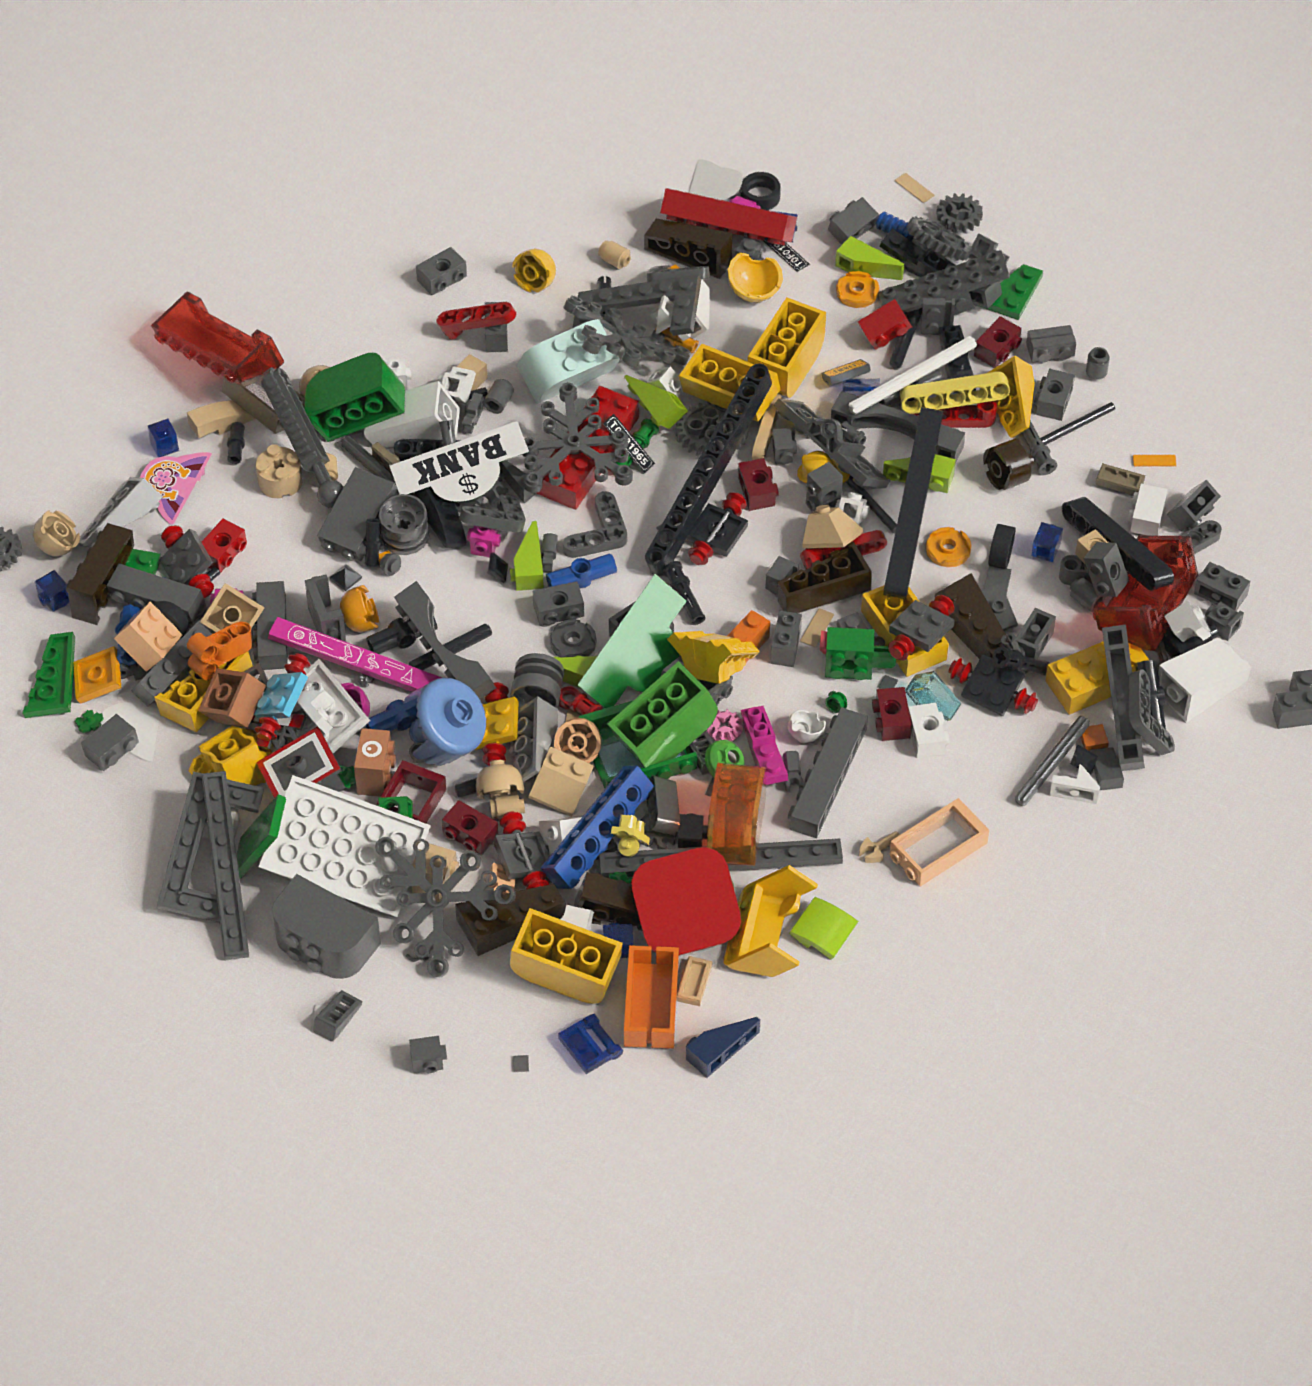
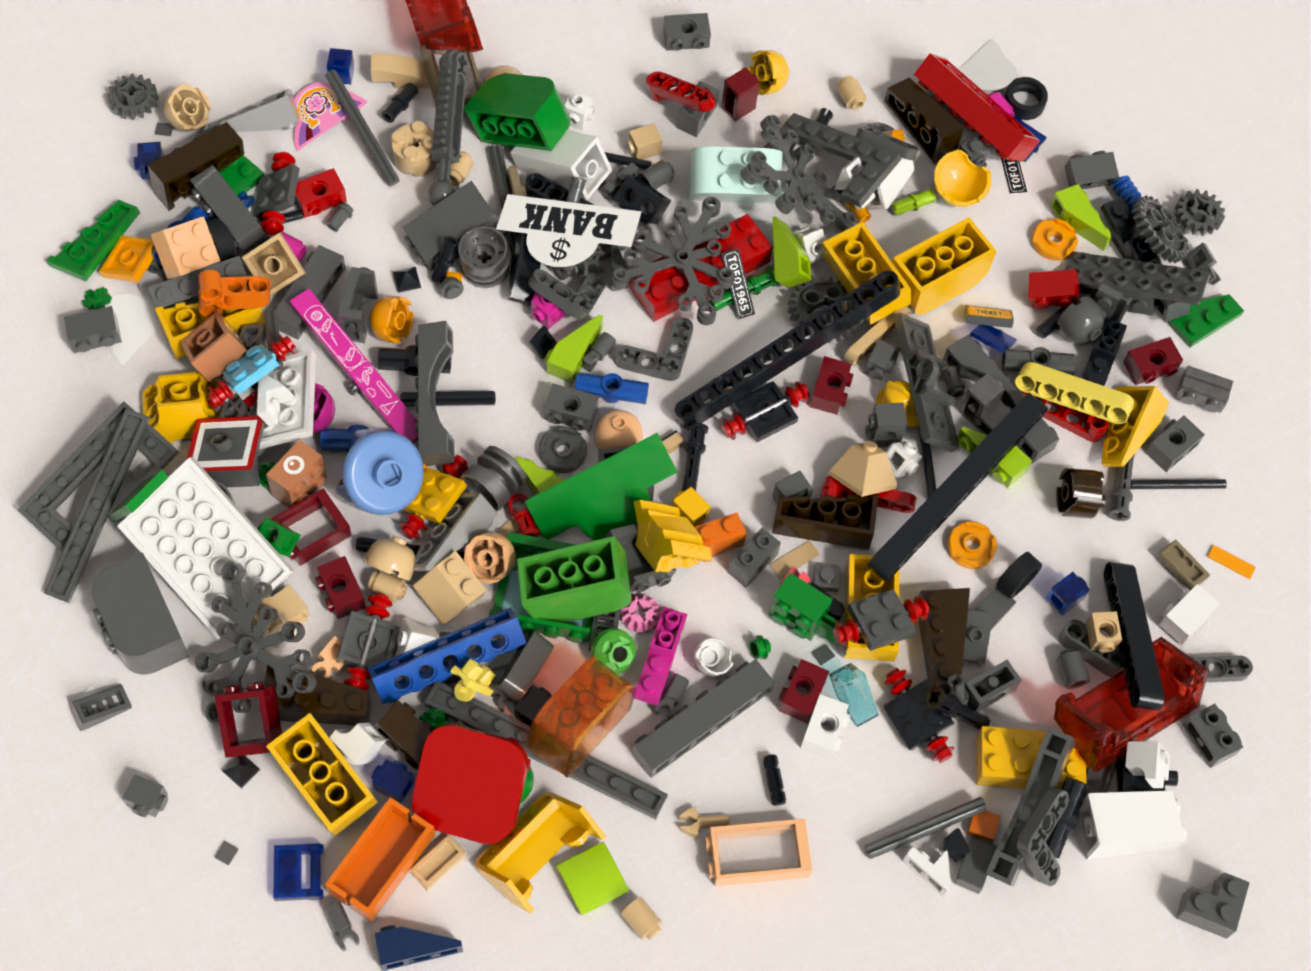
camera: 25 degrees right, 10 degrees up
(41, 563) = (163, 129): none -> dark grey window
(221, 475) = (362, 127): none -> dark grey axle
(253, 550) = (339, 216): none -> dark grey pin
(269, 661) = (272, 332): none -> dark grey axle
(449, 935) = (269, 714): none -> dark red window
(458, 383) = (621, 147): white brick -> none
(487, 1000) = (241, 770): none -> black slope
(502, 414) = (643, 196): none -> black brick
(526, 296) = (740, 94): none -> dark red brick
(607, 601) = (617, 430): none -> light nougat cylinder
(652, 1061) = (340, 923): none -> dark grey bar
(710, 623) = (692, 506): none -> yellow brick
(725, 314) = (913, 202): none -> lime axle
(883, 933) = (642, 919): none -> tan brick
(887, 437) = (983, 404): none -> flat silver brick
(912, 375) = (1044, 354): white axle -> none
(914, 187) = (1175, 165): tan sticker -> none
(914, 788) = (774, 780): none -> black axle
(924, 338) = (1081, 321): none -> dark grey cylinder
(1097, 363) = (1235, 434): dark grey brick -> none
(1106, 569) = (1100, 660): dark grey brick -> none
(1194, 505) = (1238, 634): dark grey brick -> none
(1225, 619) = (1189, 778): dark grey brick -> none

